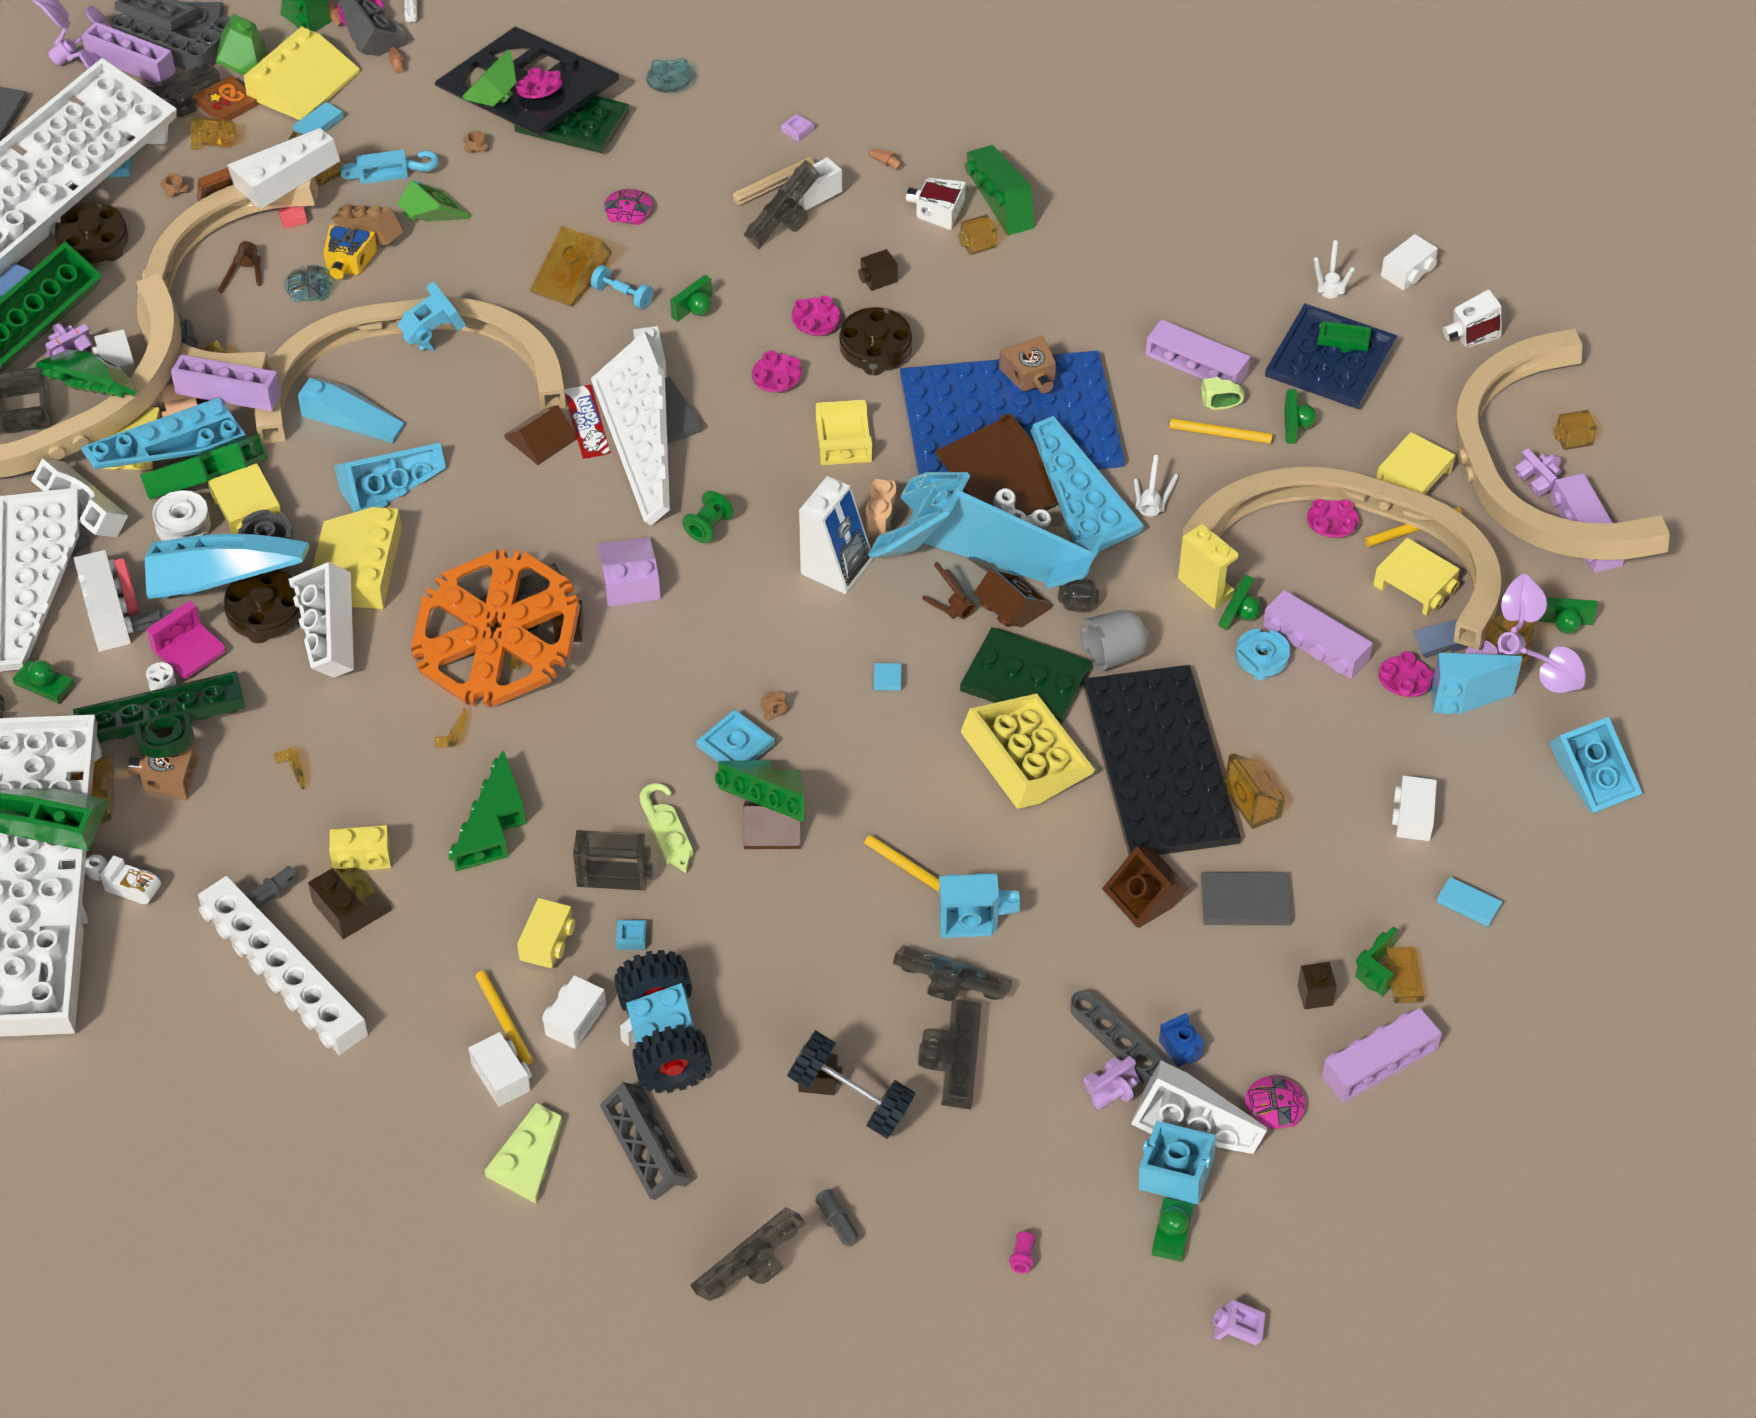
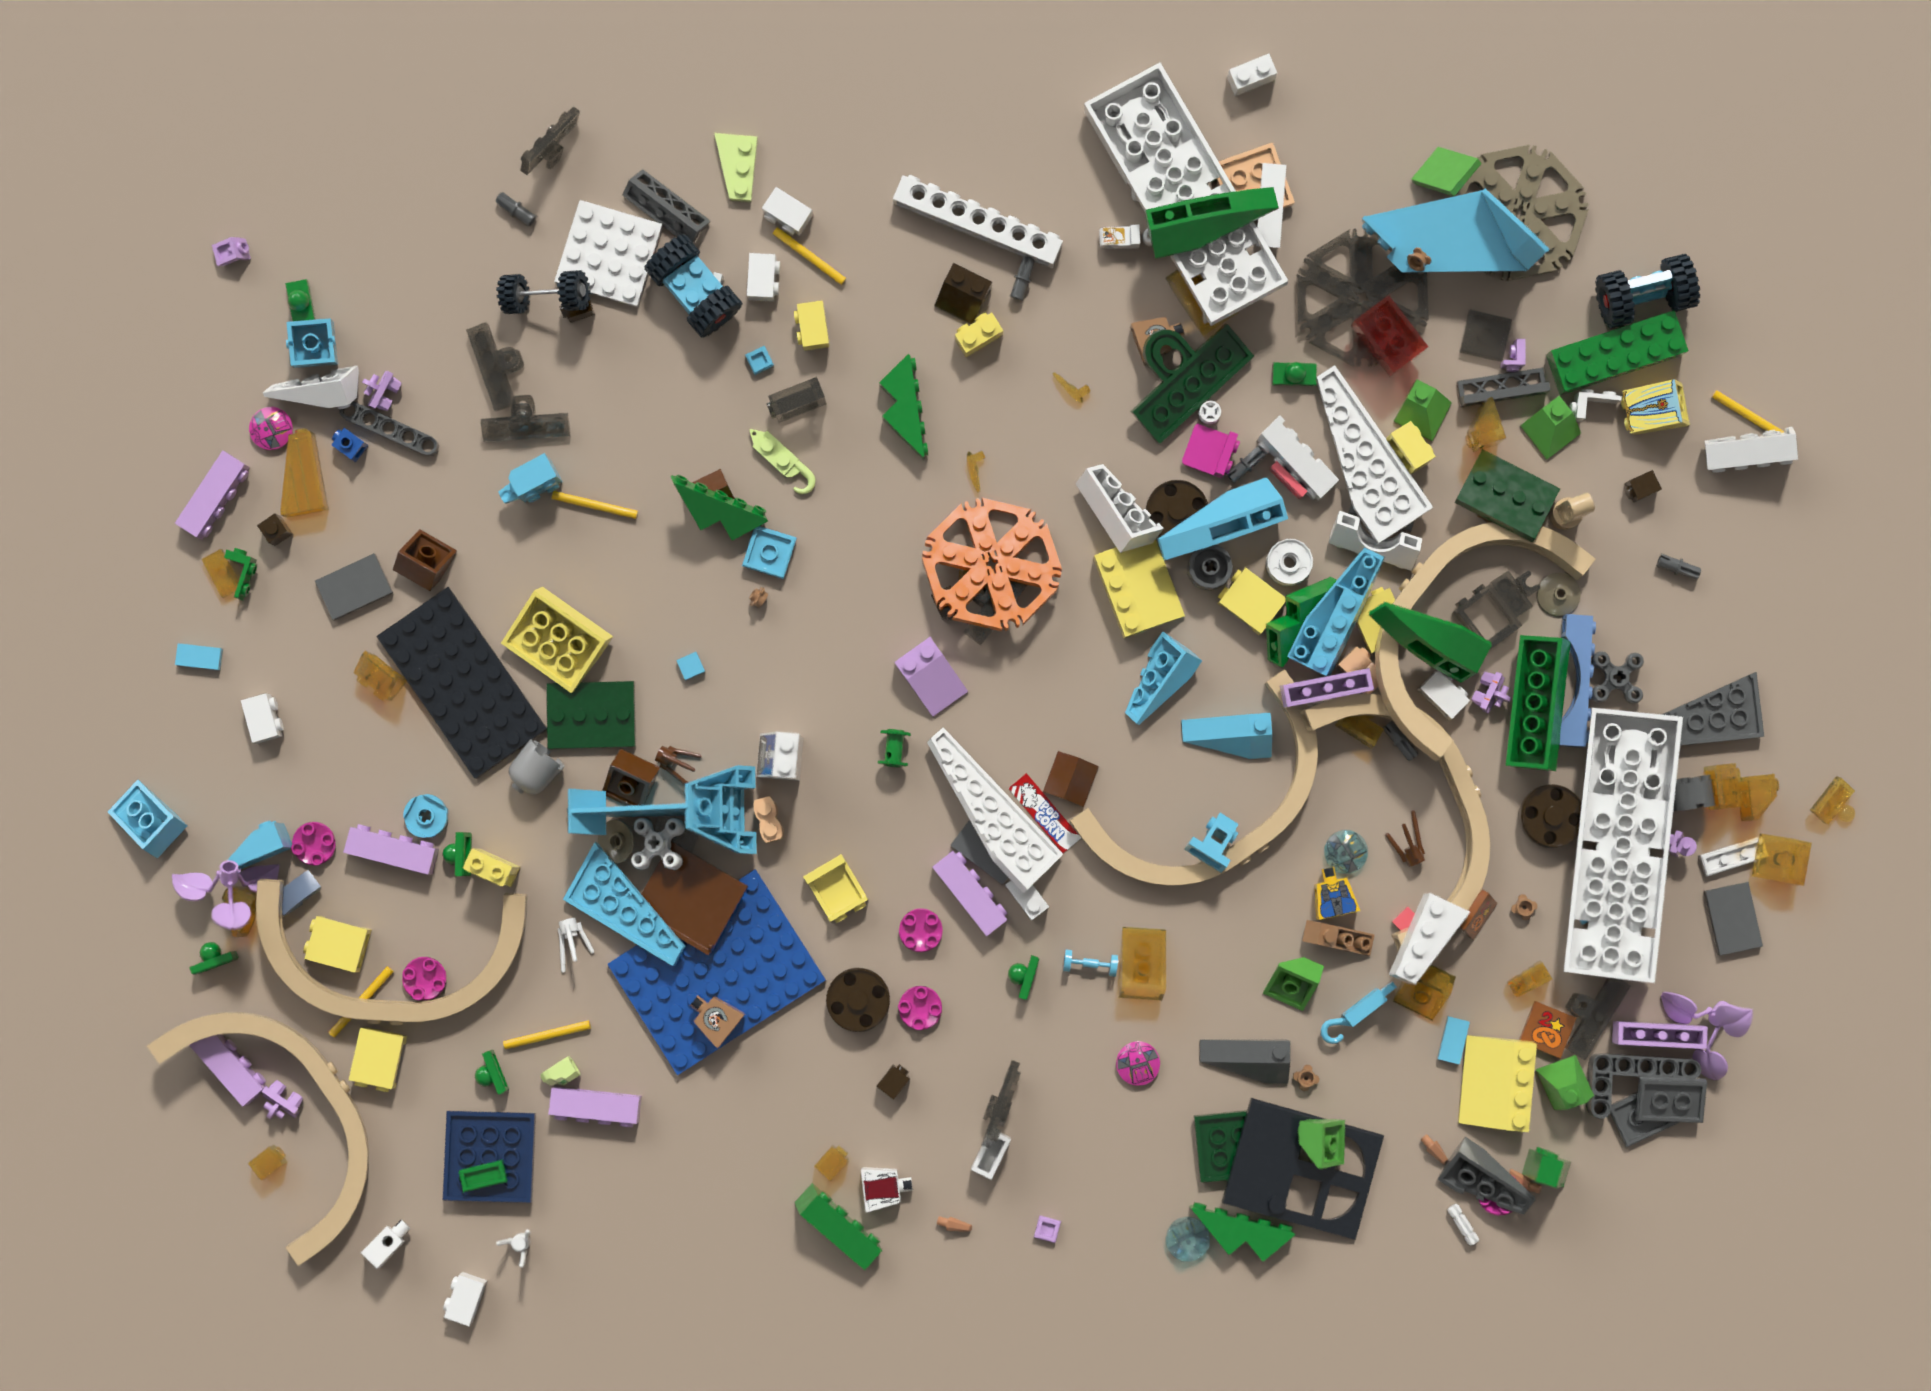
camera: 155 degrees right, 35 degrees up
(515, 173) = (1253, 1058): none -> dark grey wedge
(539, 83) = (1282, 1156): dark pink dish -> none
(624, 60) = (1235, 1230): none -> green slope
(706, 380) = (969, 892): none -> lavender brick
(747, 1122) = (610, 251): none -> white plate
(767, 183) = (1033, 1151): tan axle -> none
(1022, 1259) = (386, 238): dark pink pin -> none
(1258, 1025) = (303, 477): none -> clear yellow slope

